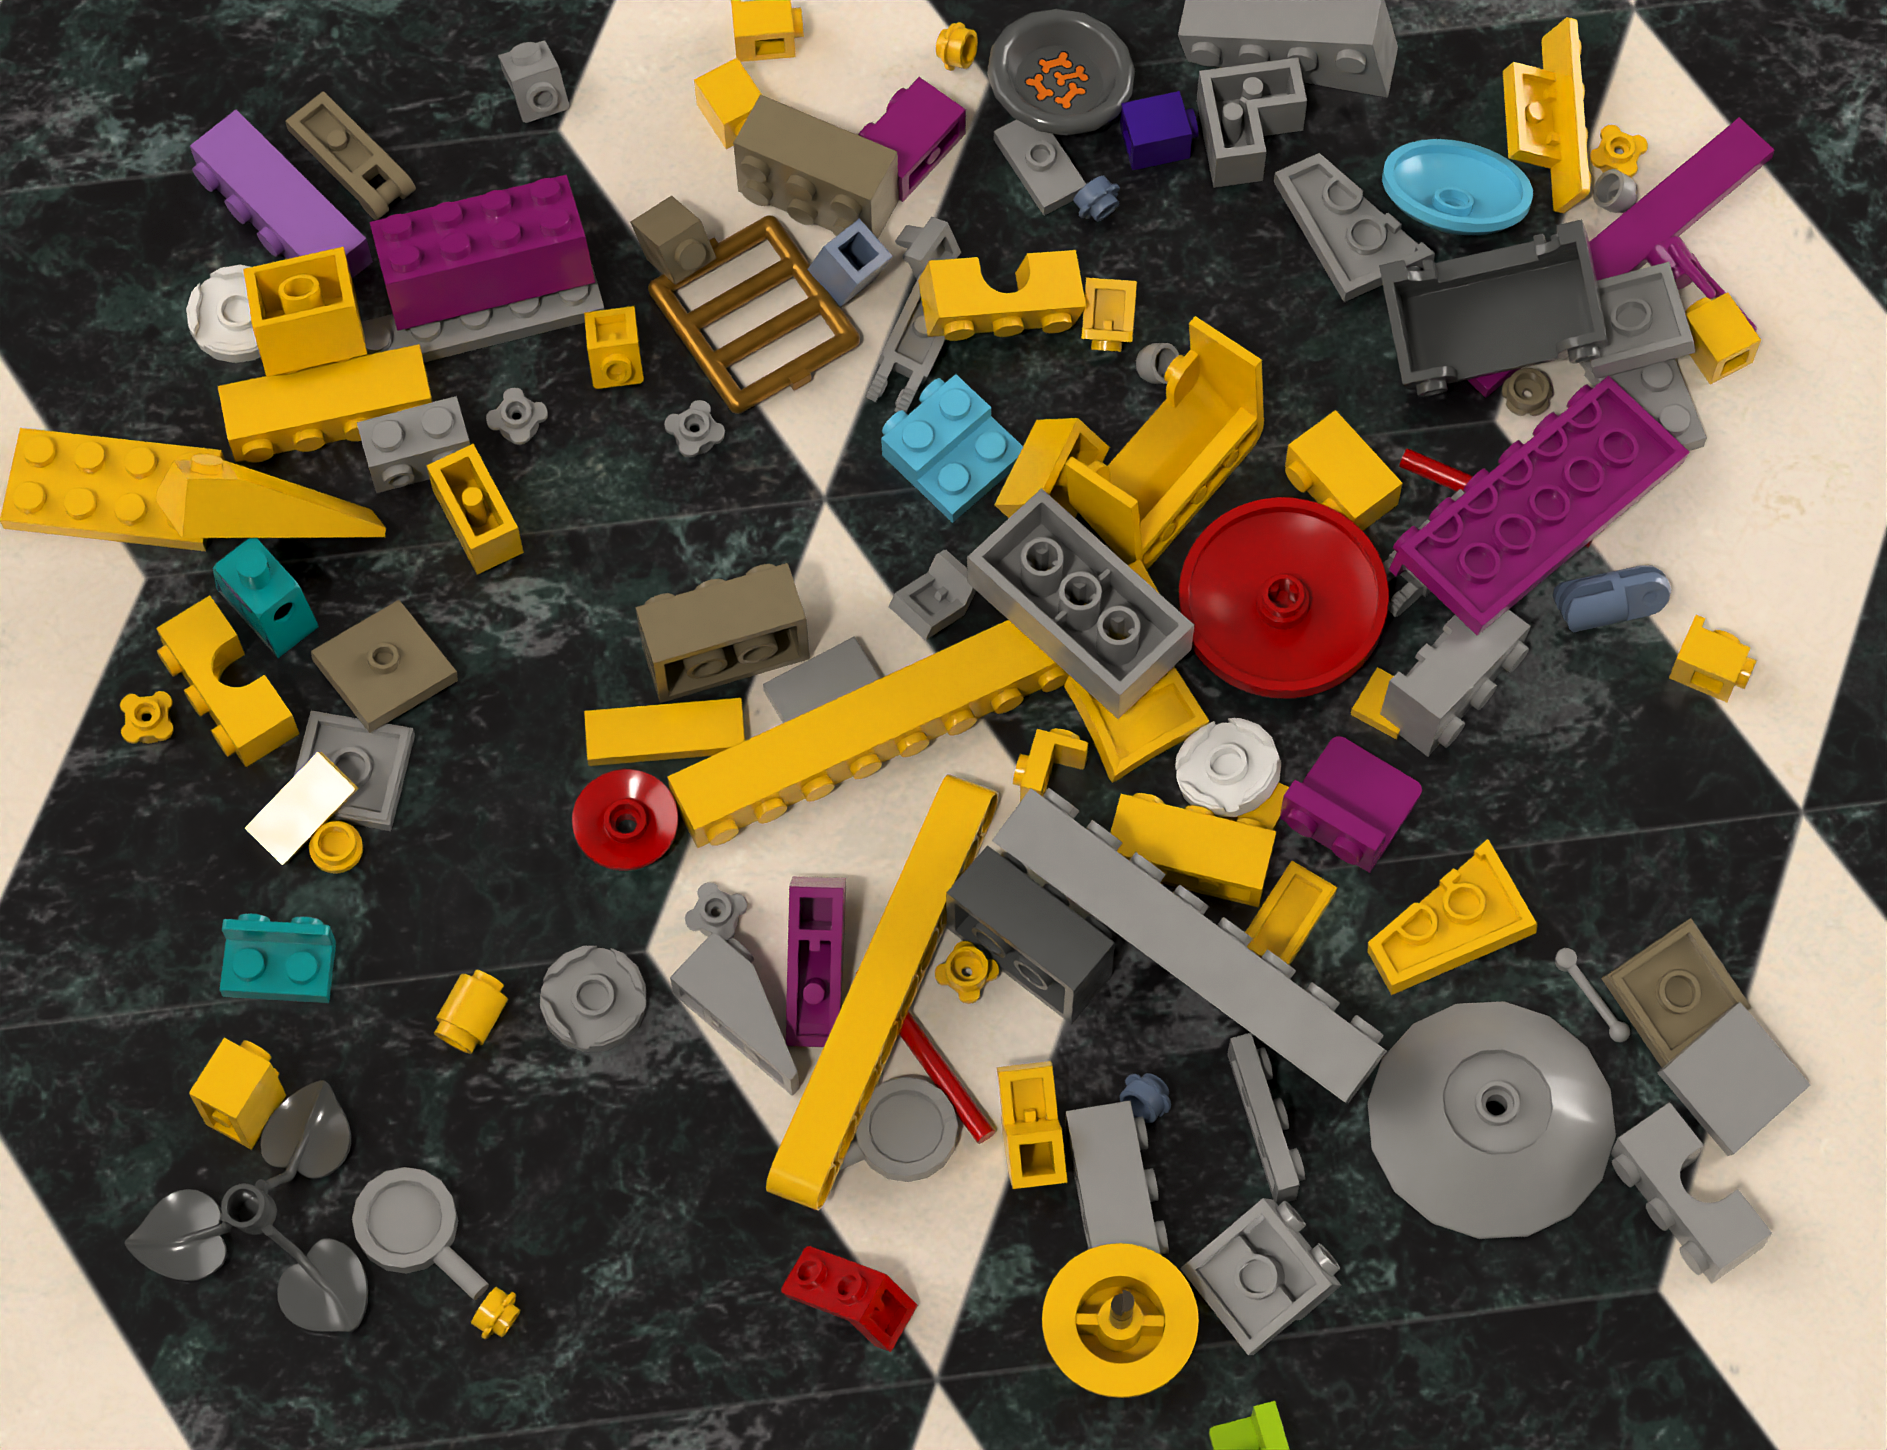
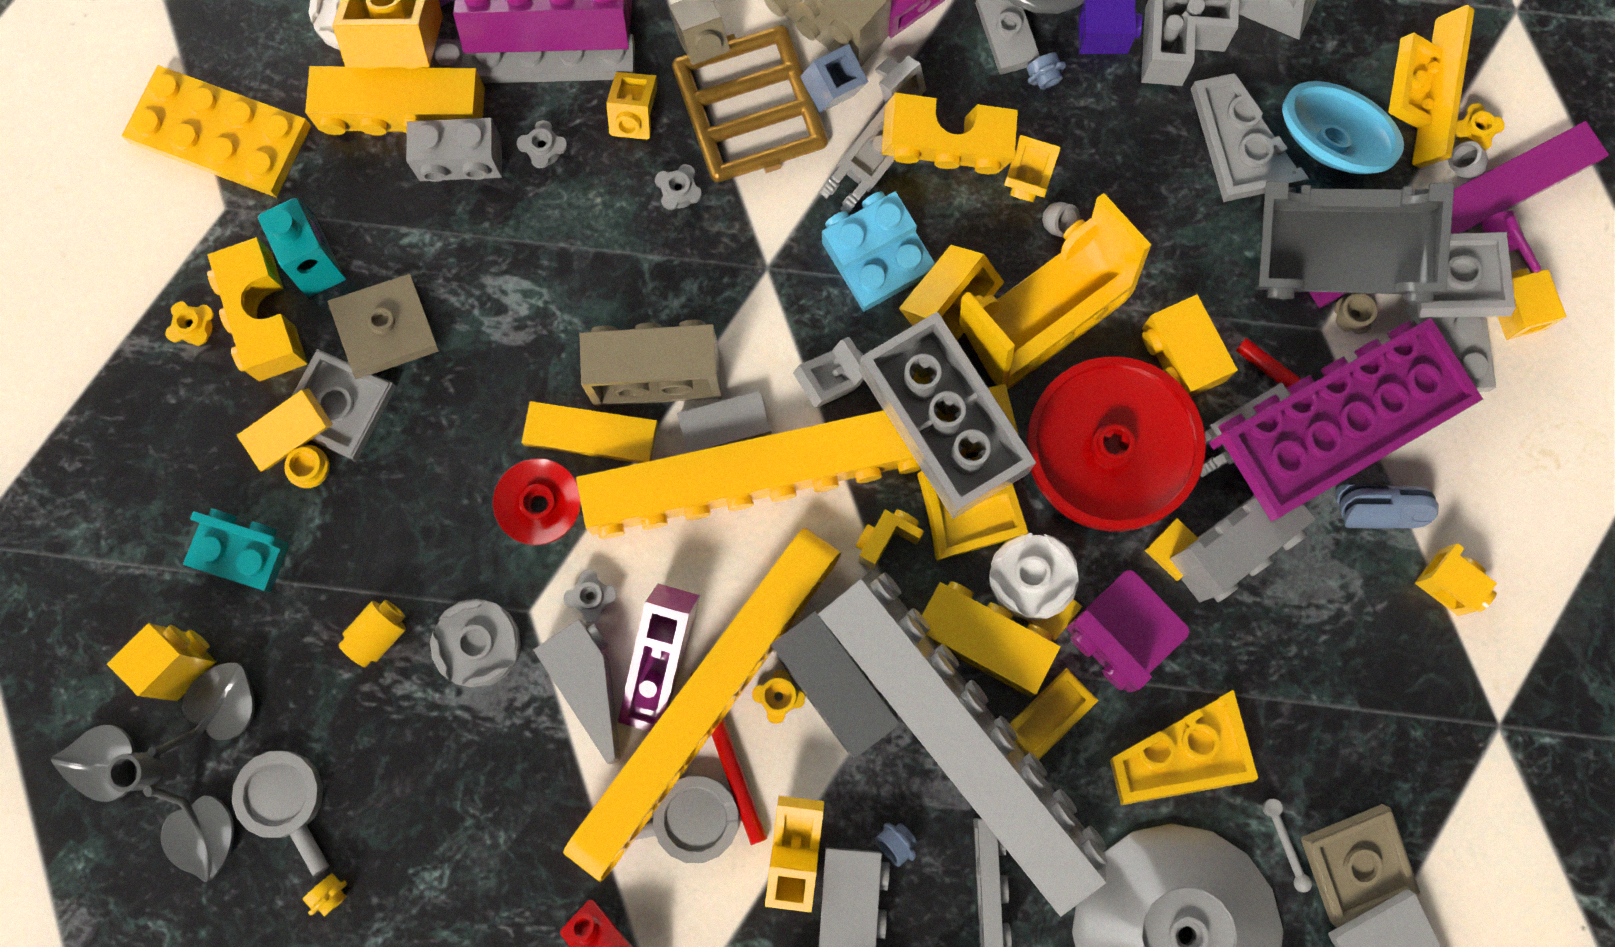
camera: 15 degrees right, 10 degrees up
(231, 501) = (293, 168): yellow wedge -> none
(475, 509) = (484, 214): yellow brick -> none

